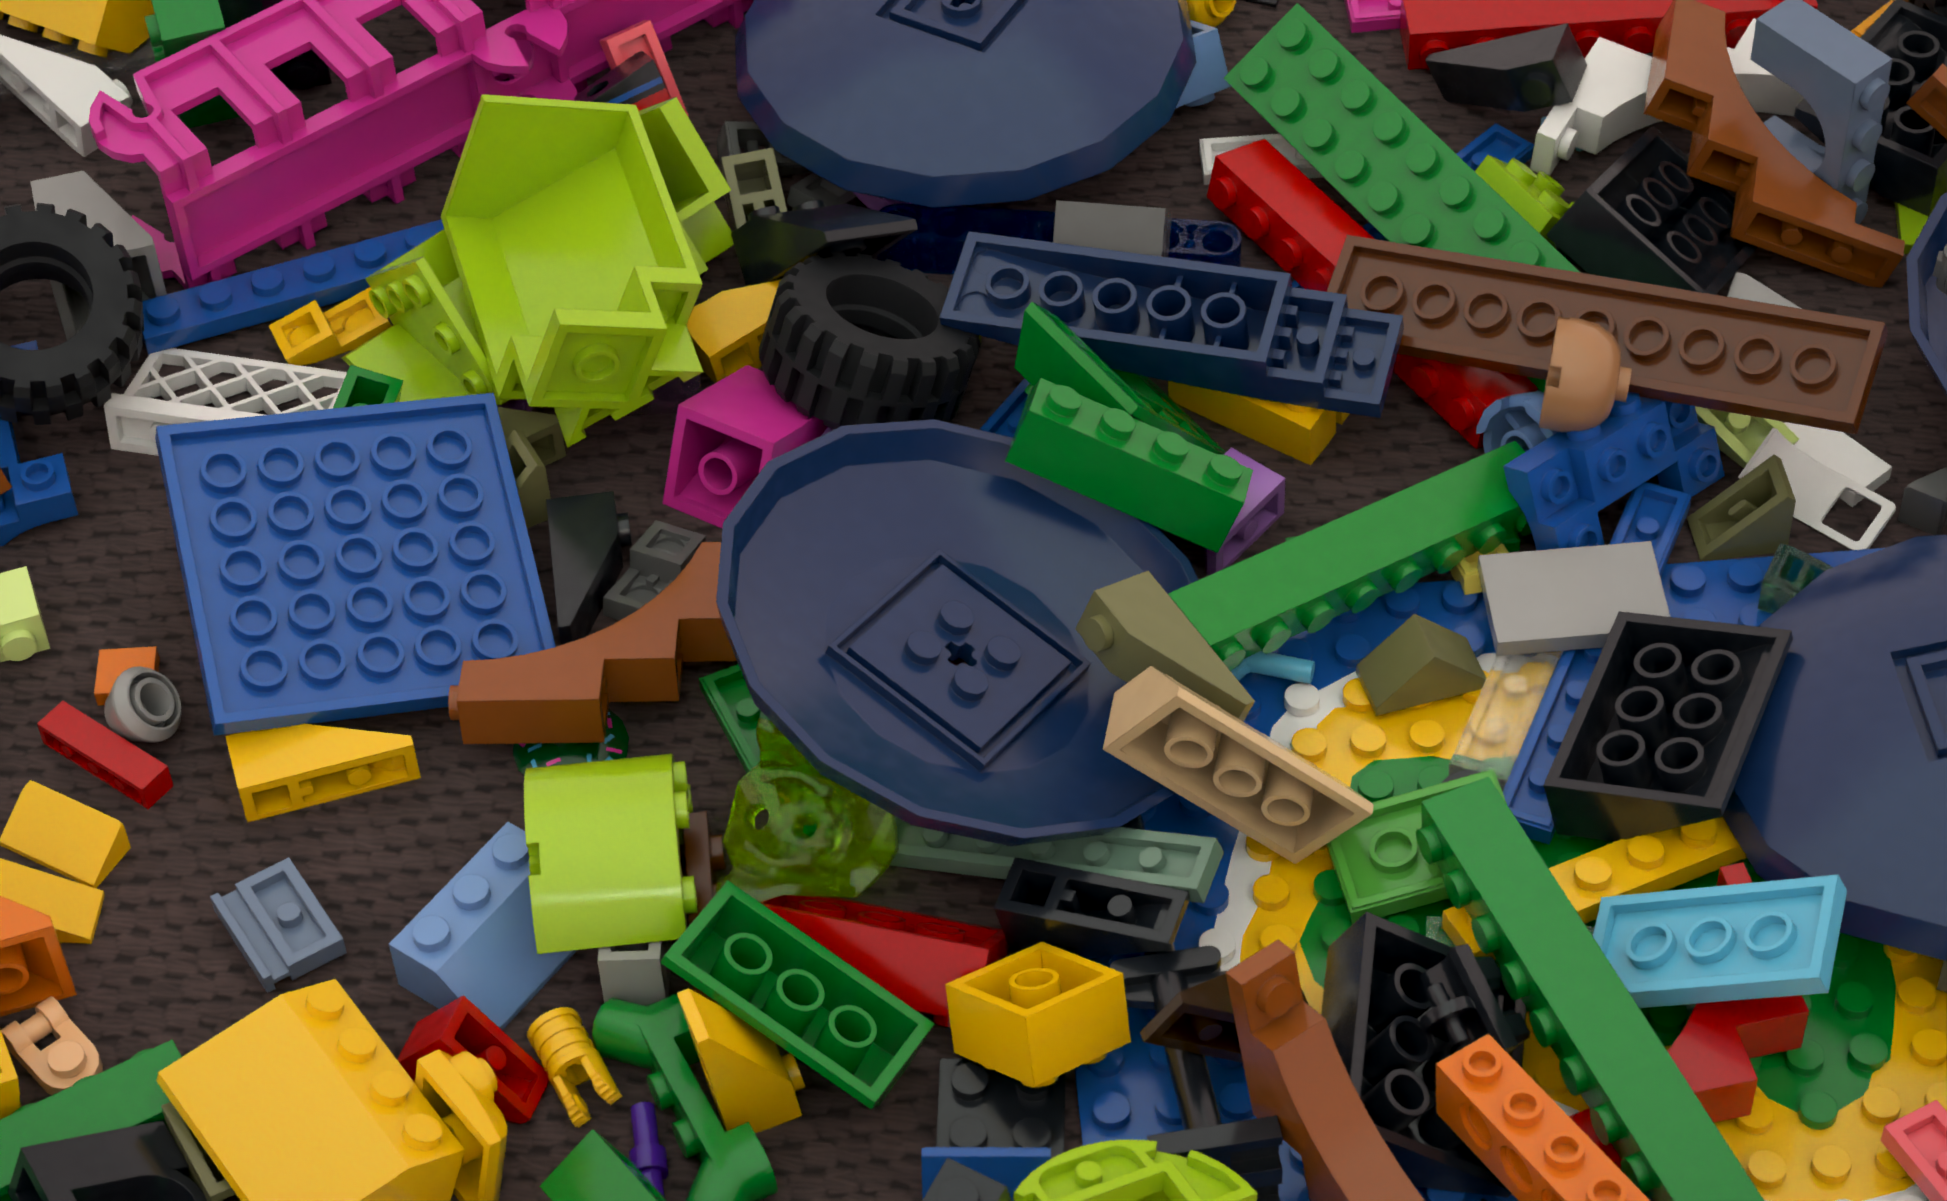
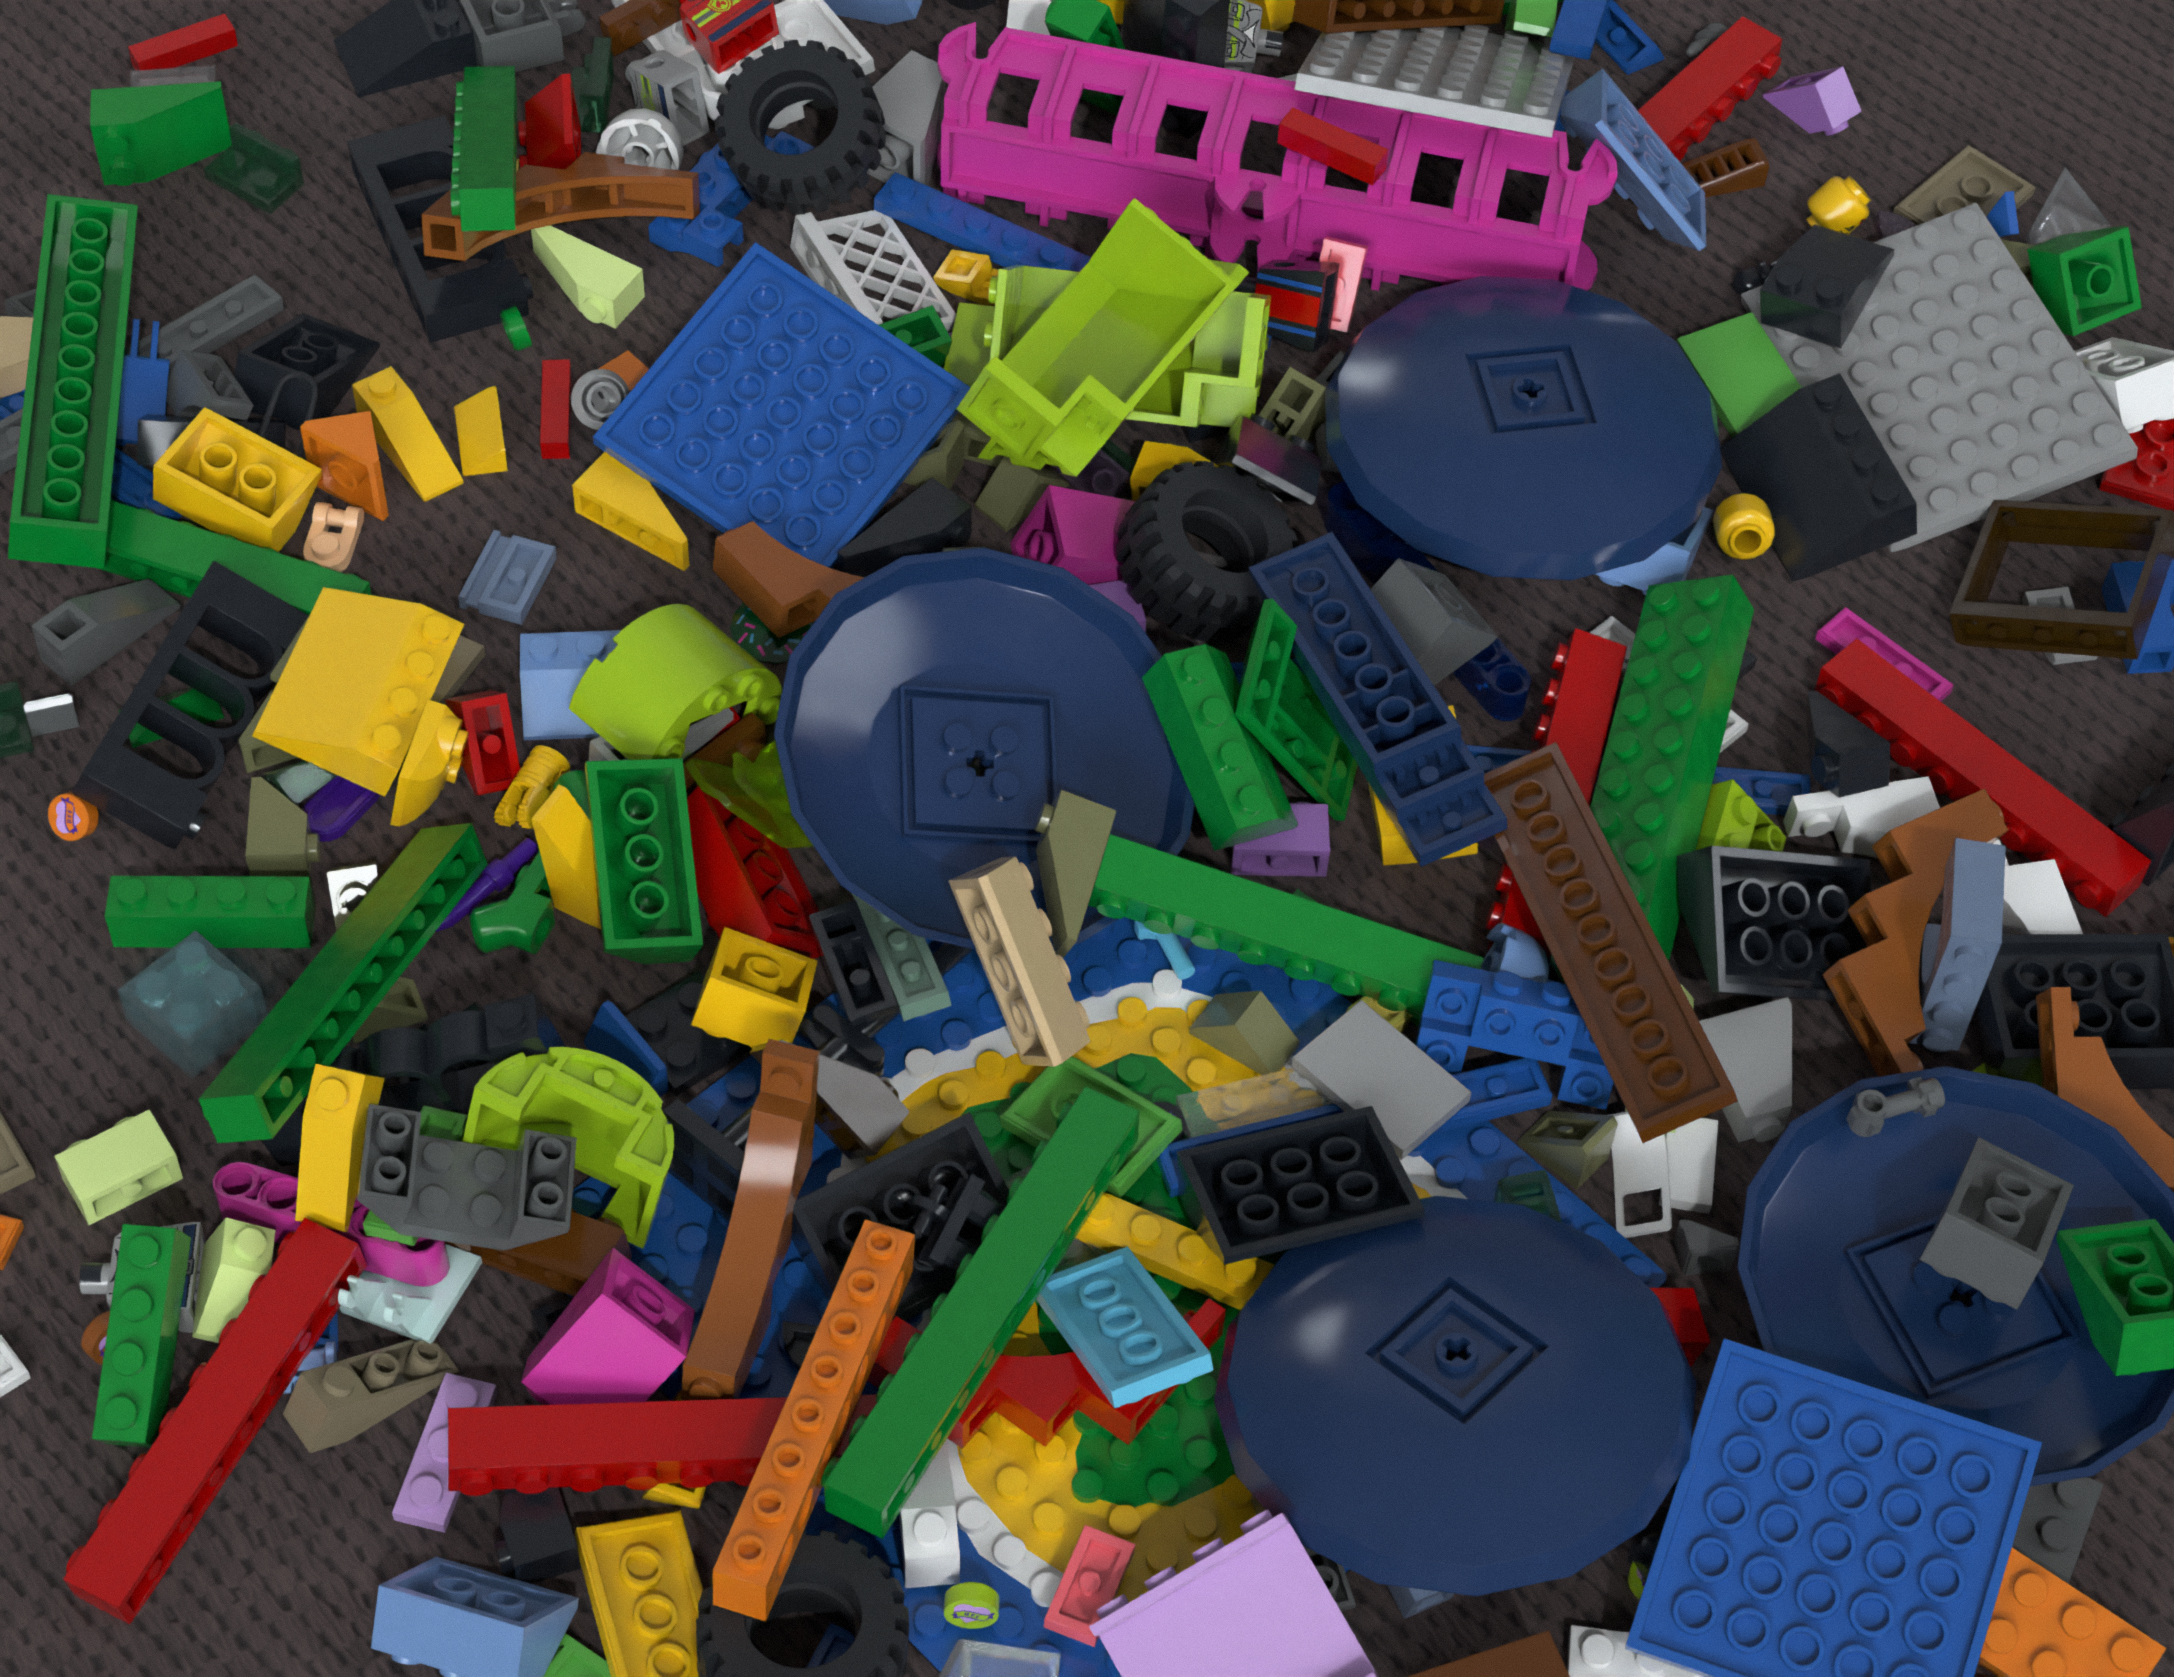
camera: 45 degrees right, 5 degrees up
(616, 457) = (1015, 491): none -> olive slope
(1582, 377) = (1529, 945): medium nougat cylinder -> none

